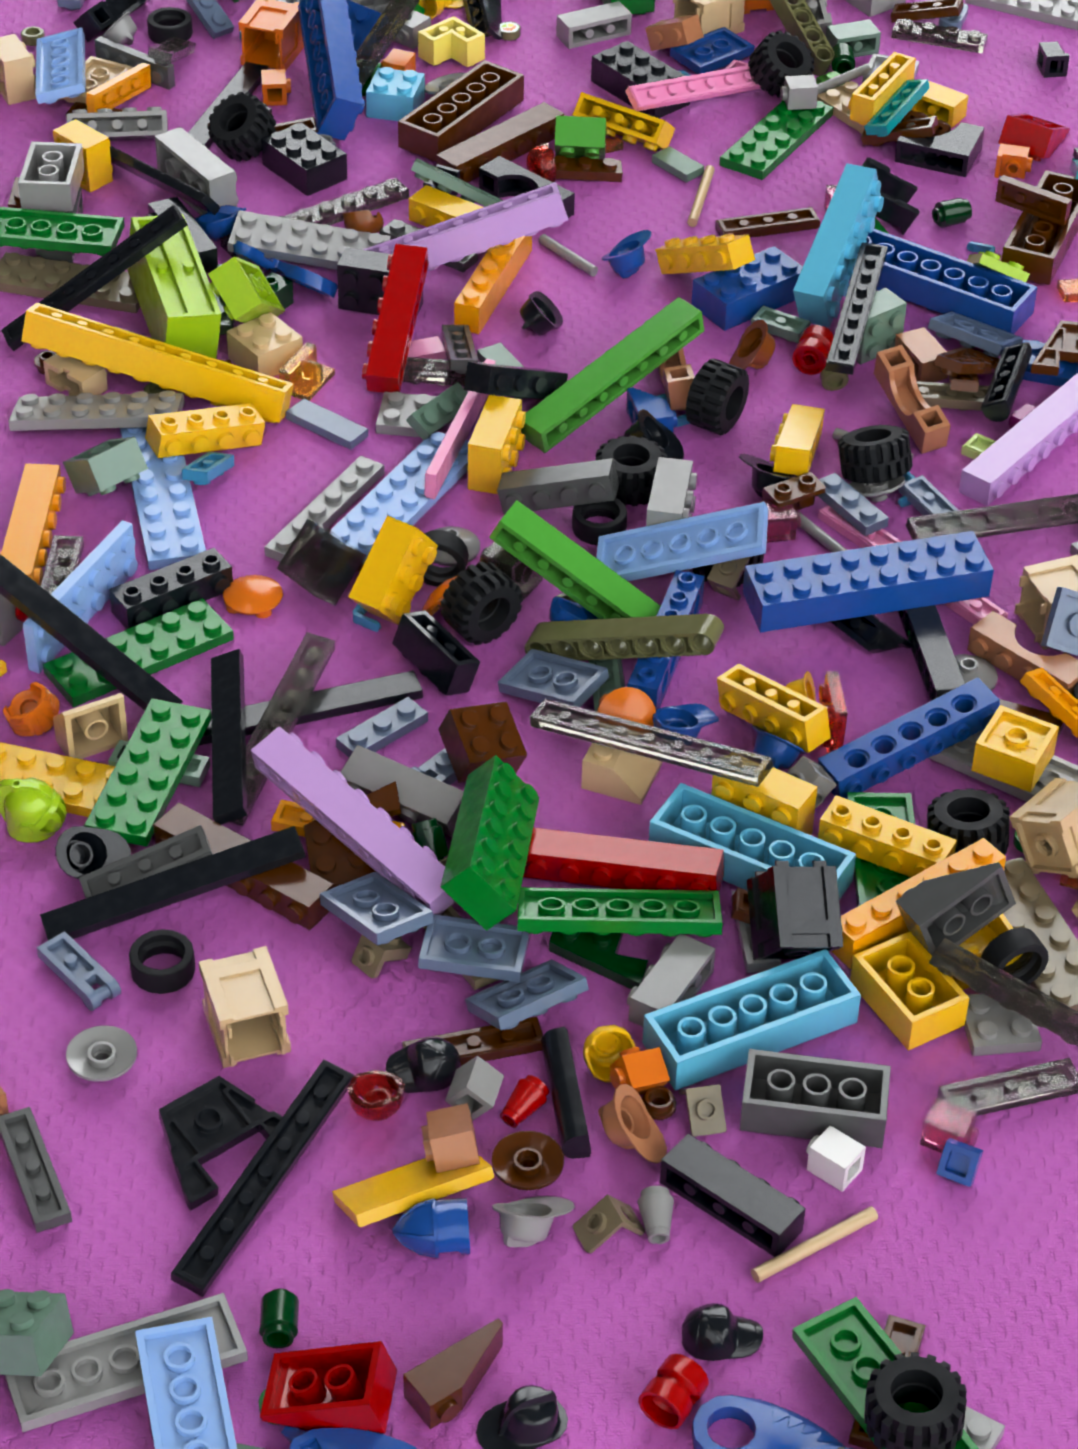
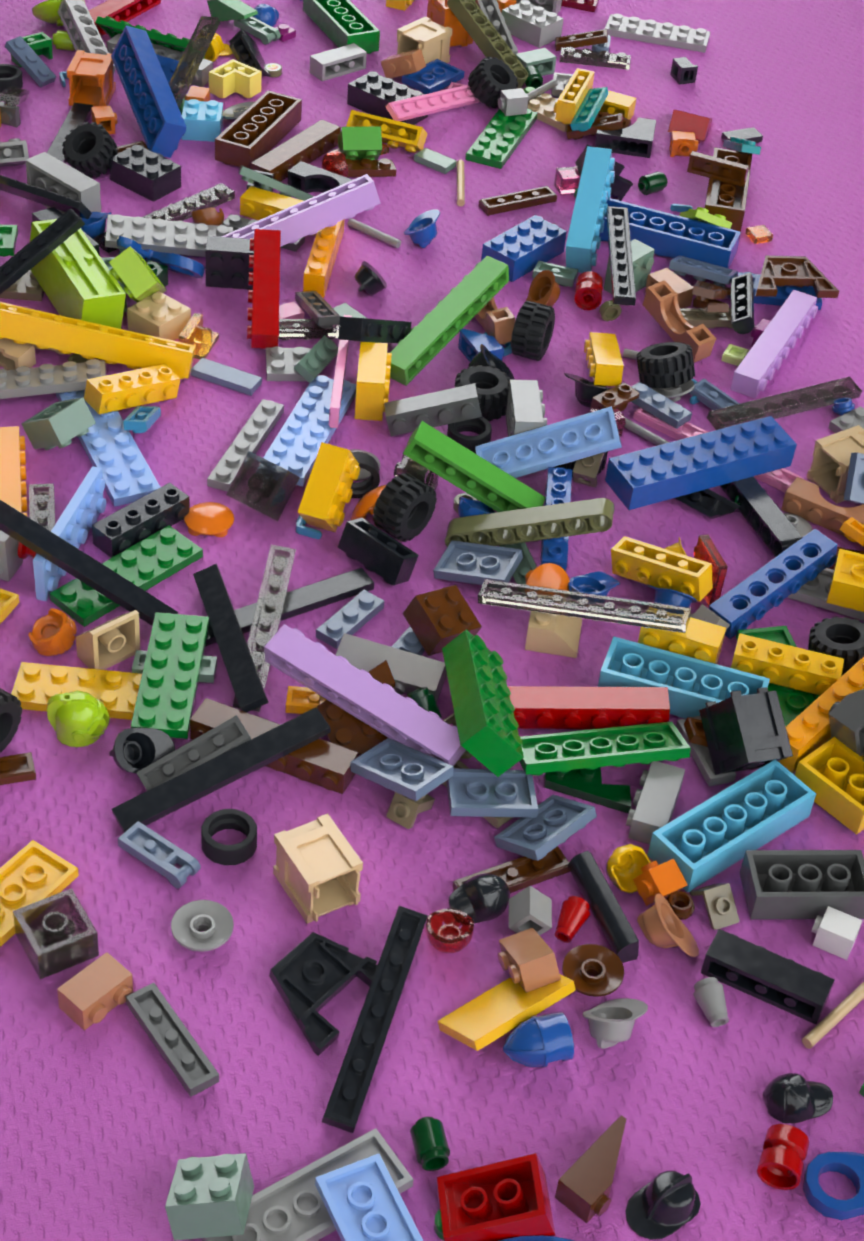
camera: 15 degrees left, 0 degrees up
(604, 1221) = (672, 1016): dark tan bracket -> none
(705, 253) = (486, 224): yellow brick -> none

